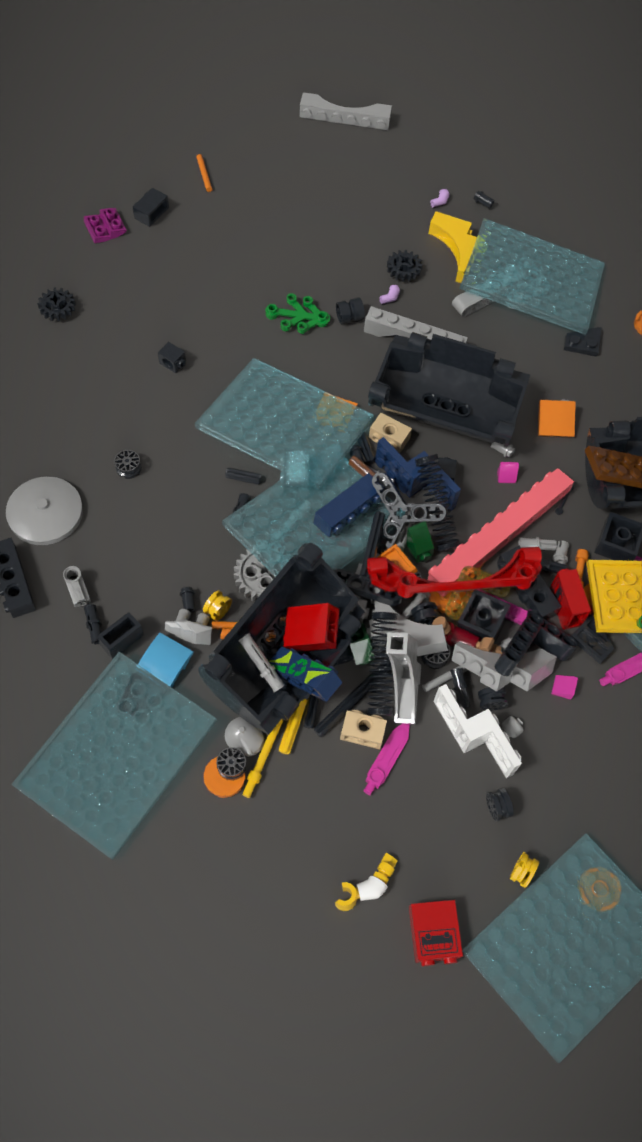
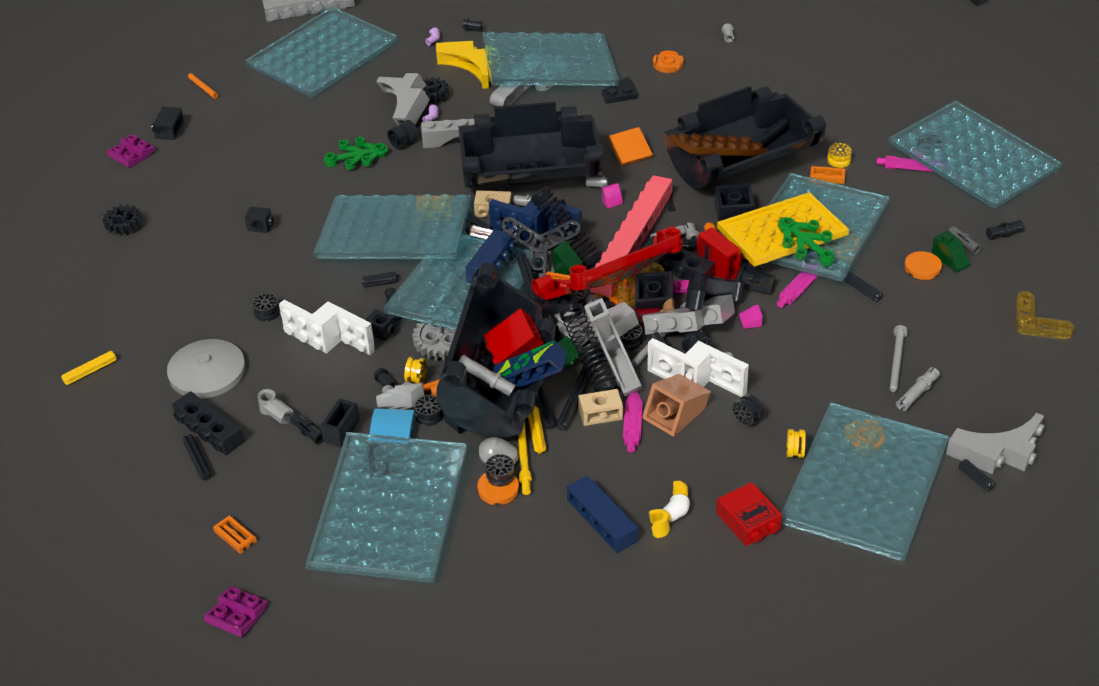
camera: 20 degrees left, 20 degrees down
(163, 518) = (327, 327): none -> white bracket
(201, 655) = (428, 410): none -> black wheel
(215, 526) = (382, 324): none -> black brick
(295, 468) = (428, 244): clear light blue brick -> none
(299, 860) = (602, 514): none -> dark blue brick
(329, 175) = (321, 51): none -> clear light blue plate
(376, 269) = (409, 93): none -> light grey arch
(421, 440) = (520, 200): none -> light grey pin
(435, 761) = (675, 403): none -> nougat slope

